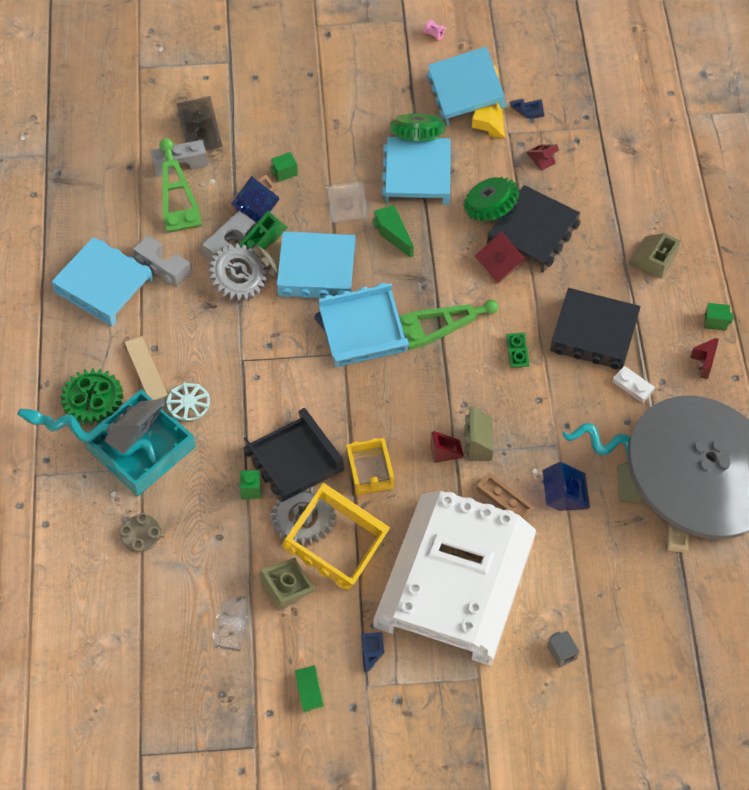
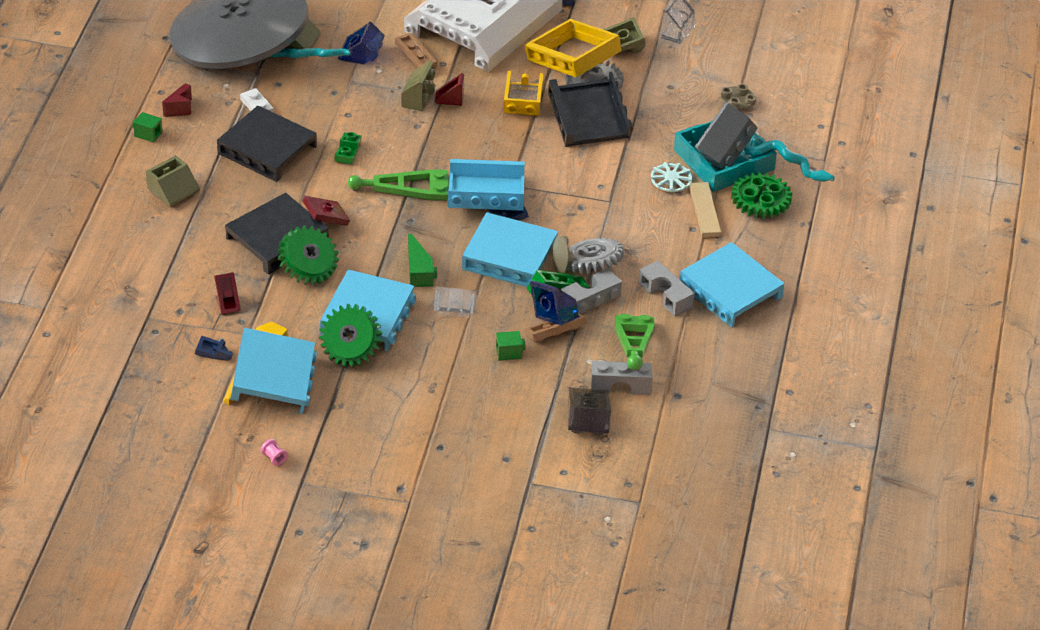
camera: 165 degrees left, 15 degrees down
(250, 484) = (634, 101): green brick -> none

